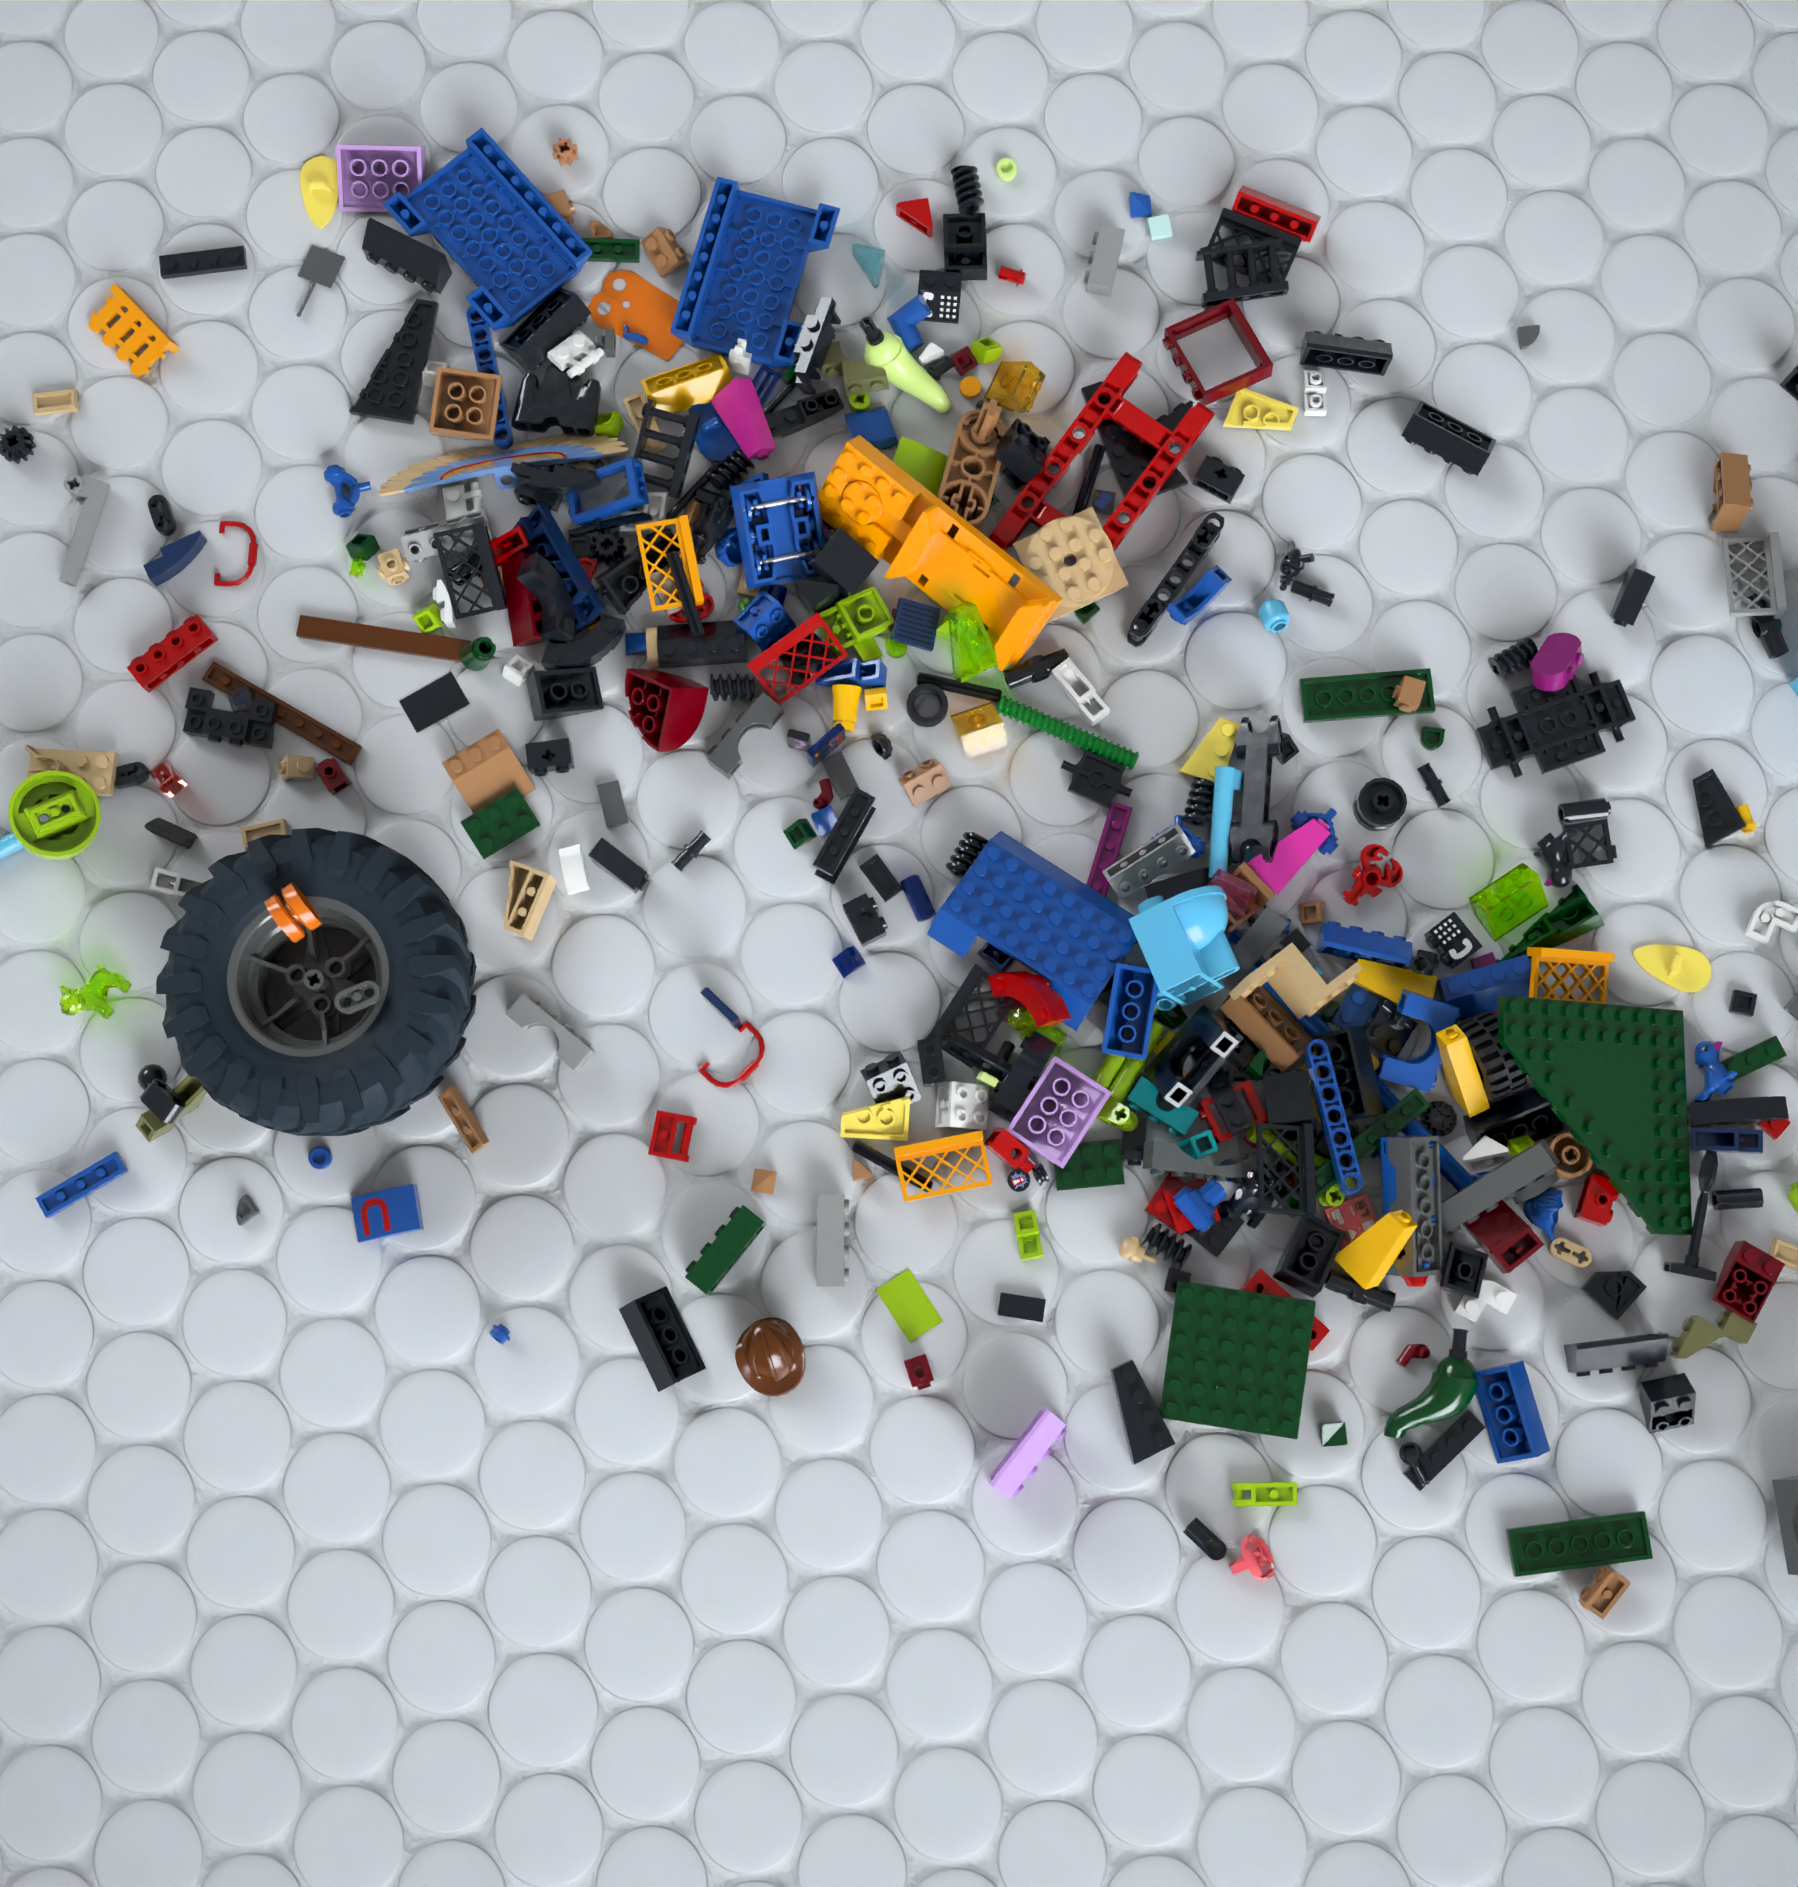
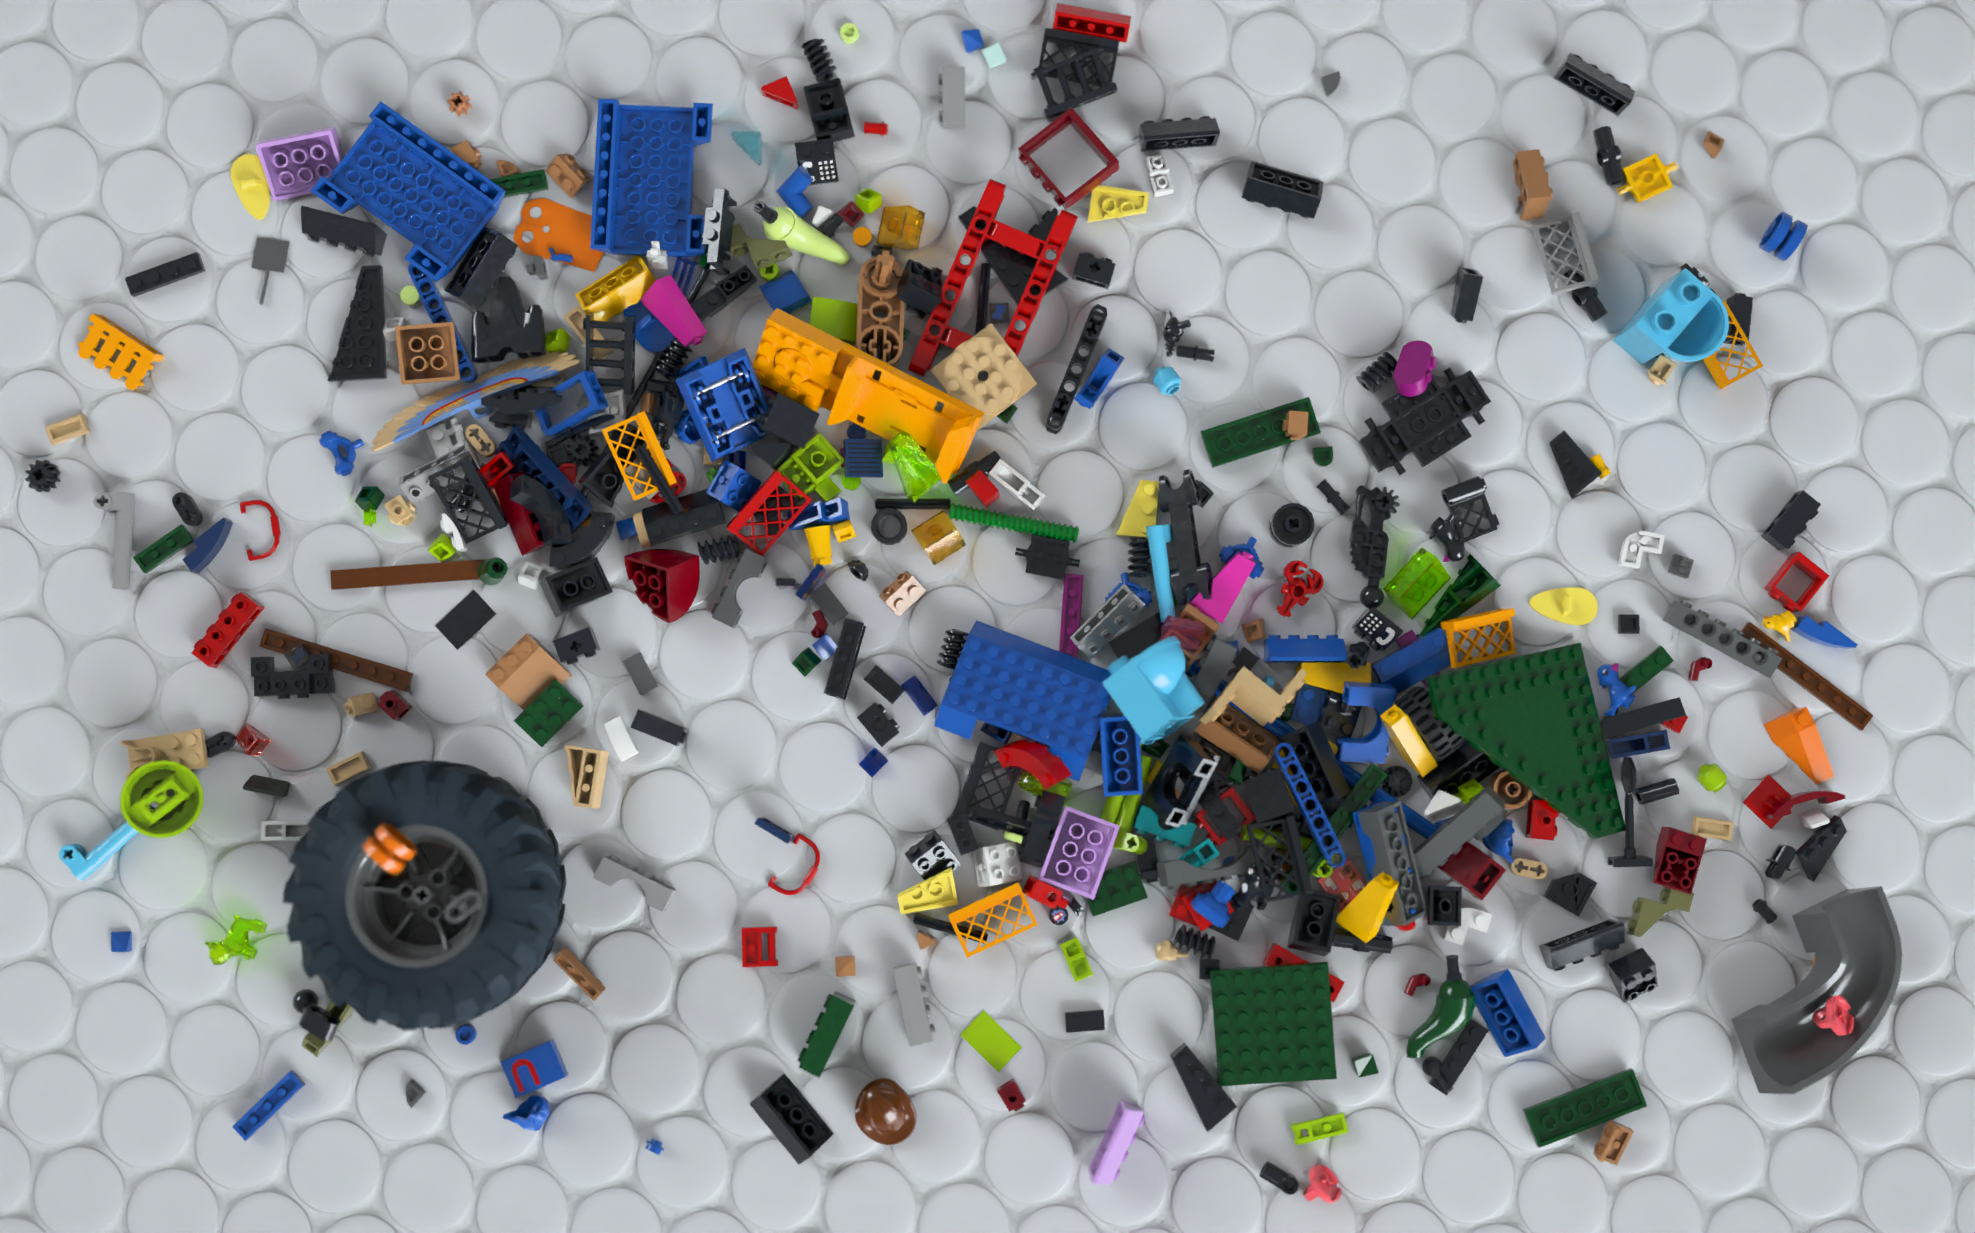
camera: 20 degrees left, 5 degrees up
(125, 551) = (163, 549): none -> dark green plate
(370, 1262) = (530, 1113): none -> blue hair
(461, 342) = (410, 295): none -> yellowish green tile
(495, 514) = (483, 438): none -> tan beam
(571, 350) = (508, 283): white plate -> none
(691, 850) = (717, 699): black pin -> none
(915, 594) = (856, 432): none -> clear blue tile
(1042, 686) = (983, 488): none -> red slope
(1455, 852) = (1362, 552): none -> black arm

